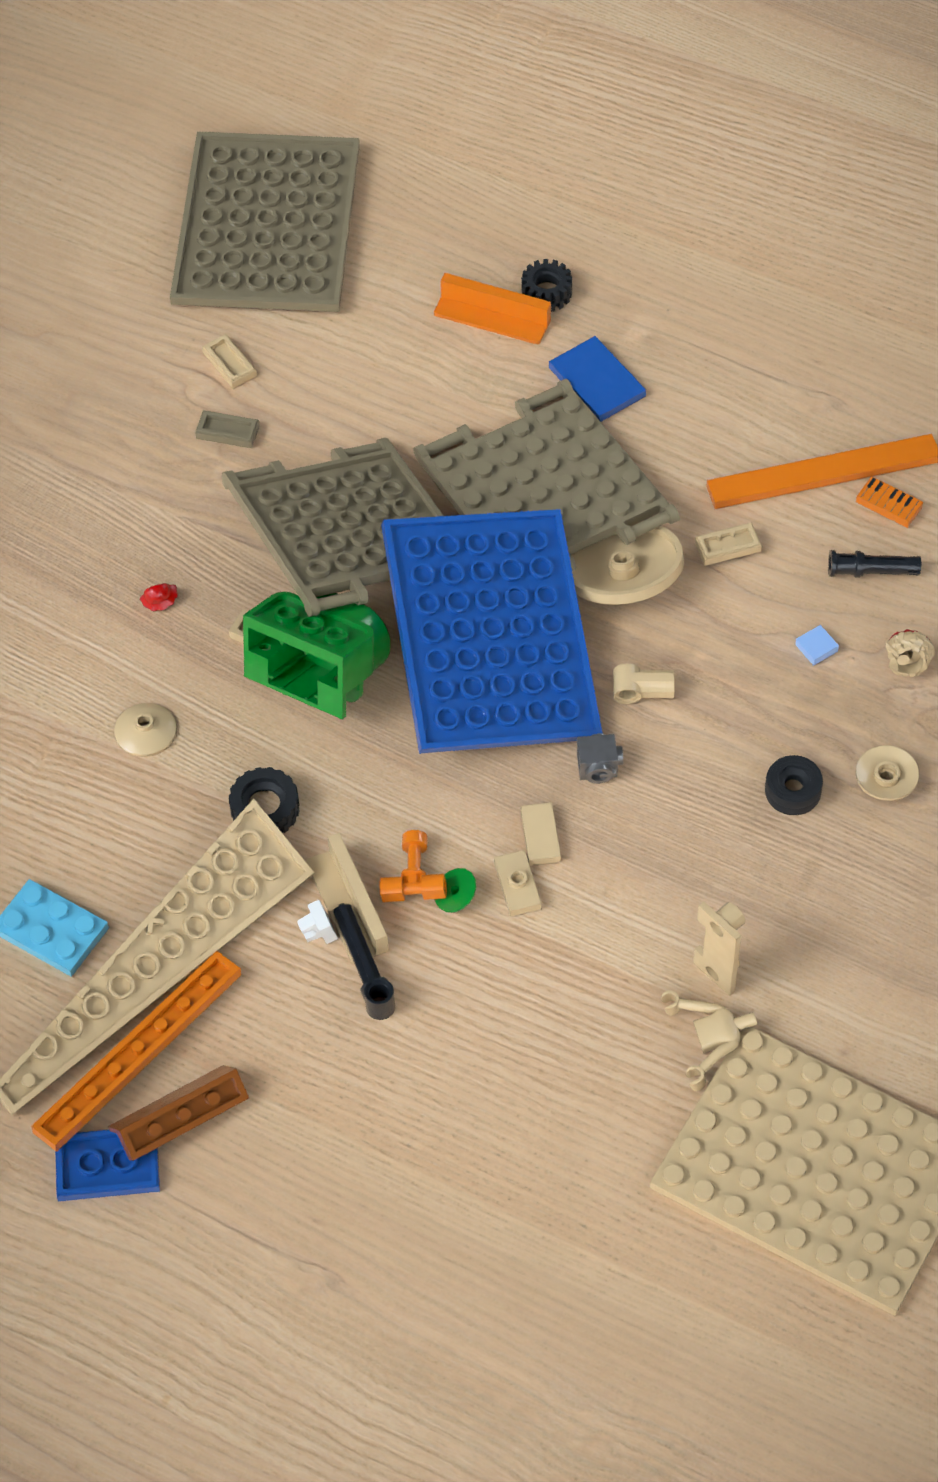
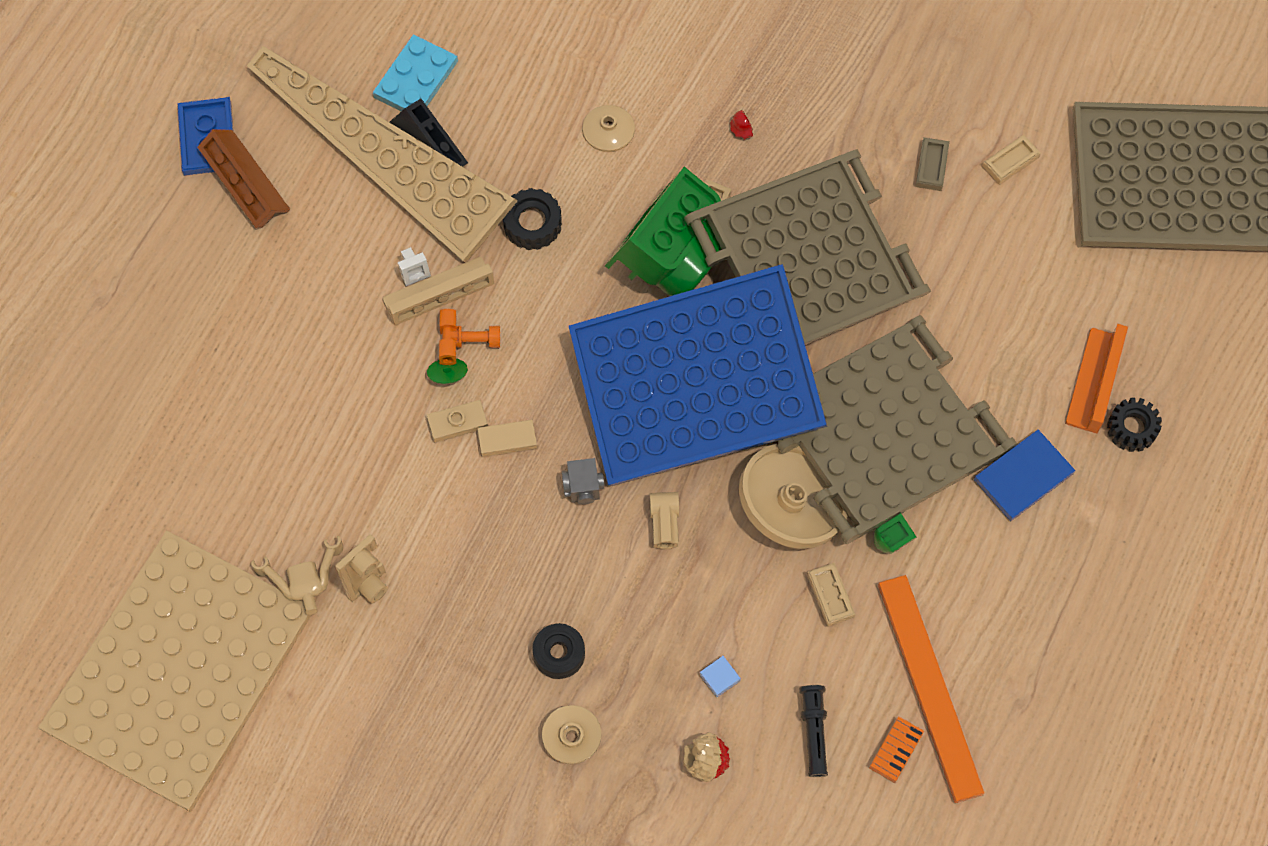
camera: 85 degrees right, 10 degrees up
(128, 909) = (422, 125): none -> black slope
(135, 1051) = (298, 144): orange plate -> none
(373, 983) = (370, 304): black axle -> none
(666, 483) = (893, 535): none -> green plate

